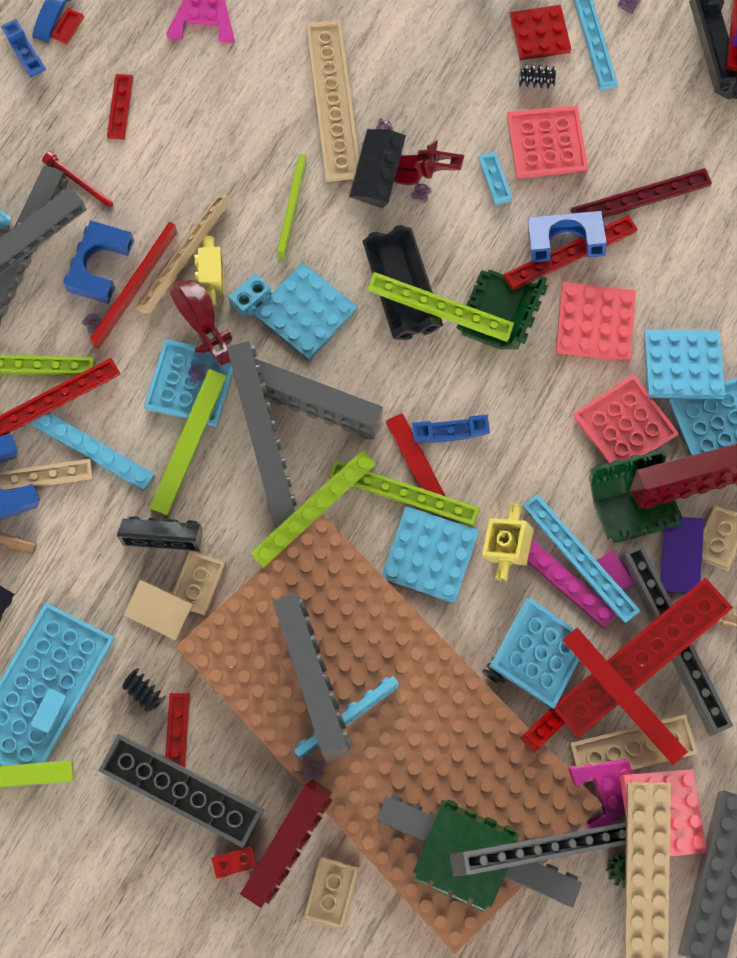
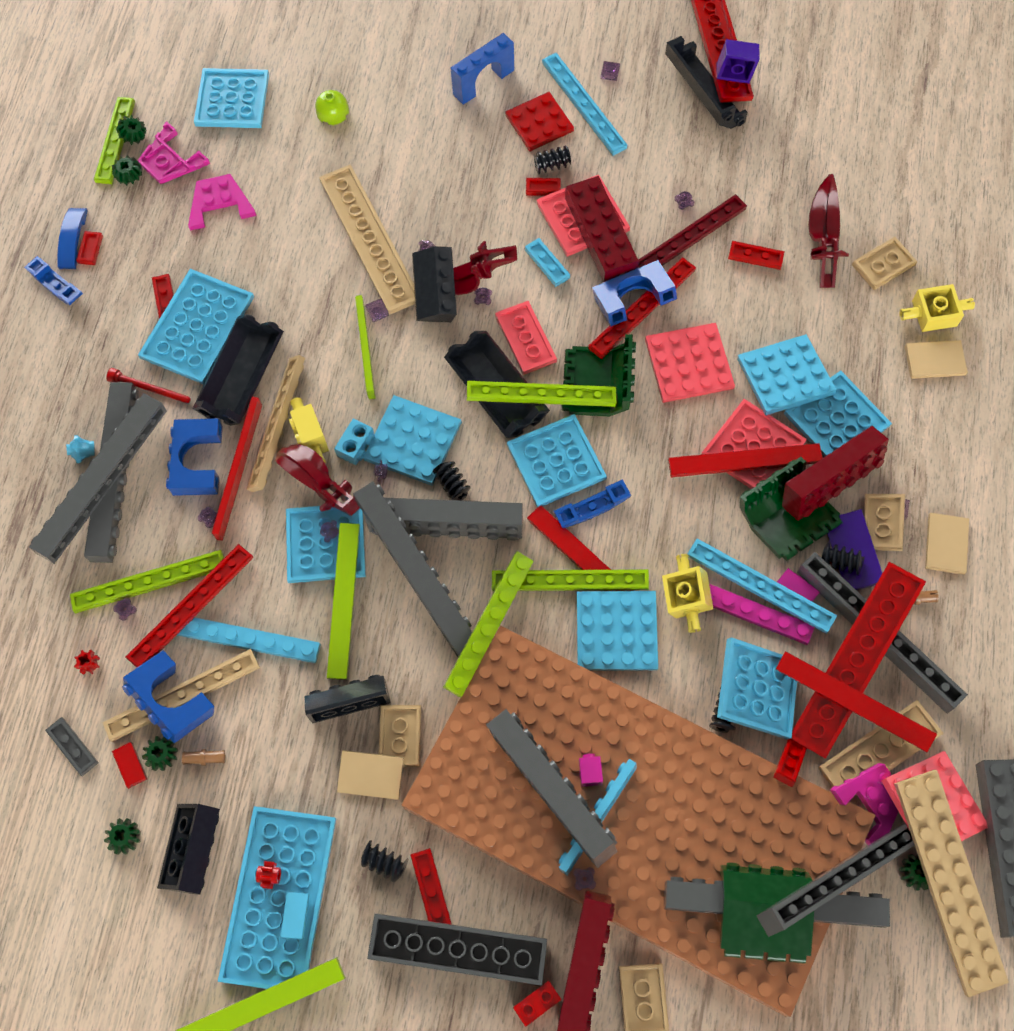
camera: 15 degrees left, 5 degrees down
(37, 667) = (268, 874): none -> red gear
(141, 135) = (195, 326): none -> medium azure plate
(166, 190) = (238, 370): none -> black panel
(265, 331) = (380, 471): none -> clear purple plate
(315, 174) = (377, 310): none -> clear purple plate
(326, 363) = (451, 480): none -> black piece
(355, 674) = (590, 770): none -> dark pink brick
(432, 375) = (556, 460): none -> medium azure plate
(447, 246) = (526, 337): none -> coral plate
(518, 100) = (542, 186): none -> red tile
(558, 161) = (601, 228): none -> dark red brick
(609, 434) = (742, 460): none -> red tile
(652, 154) = (684, 196): none -> clear purple plate
(667, 560) = (843, 558): none -> black piece
(701, 236) = (756, 255): none -> red plate

